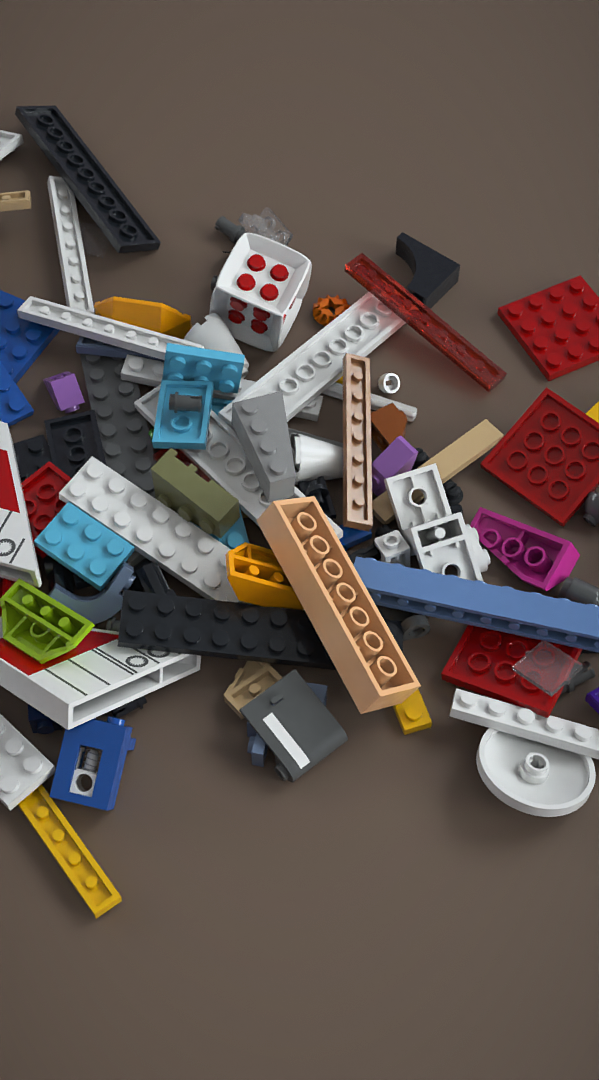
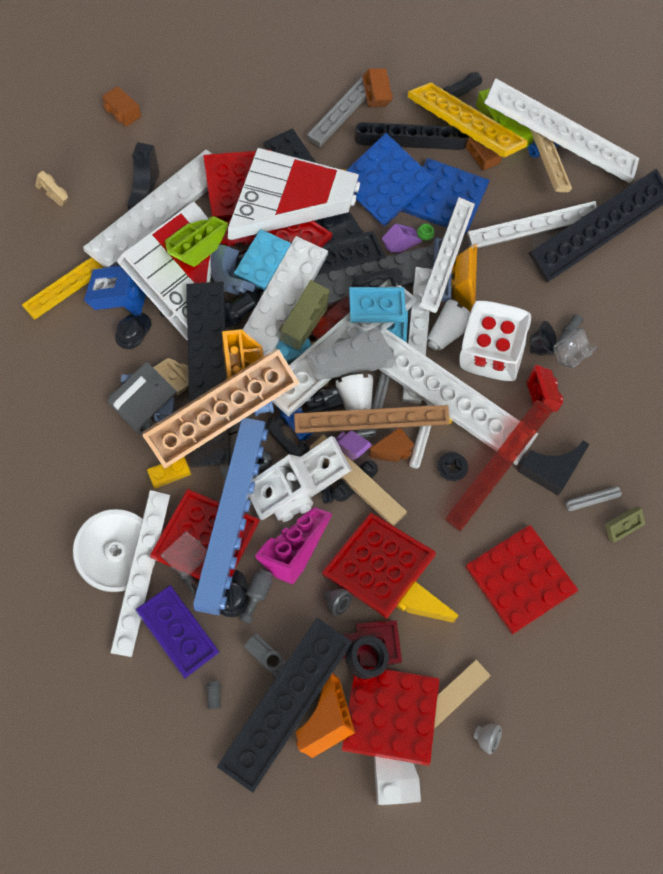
camera: 80 degrees right, 10 degrees up
(56, 363) = (425, 232): none -> bright green plate
(137, 392) = (393, 274): none -> black piece
(162, 751) = (132, 330): none -> black piece
(185, 403) = (380, 300): dark grey pin -> none
(202, 364) = (413, 309): medium azure plate -> none
(323, 314) = (514, 406): orange gear -> none
(328, 268) = (543, 387): none -> red slope
(389, 388) = (437, 447): white hinge -> none
(393, 548) = (282, 449): white bracket -> none
(413, 367) = (448, 459): none -> black gear
(465, 246) = (593, 498): none -> light grey axle
(497, 218) = (625, 524): none -> olive plate

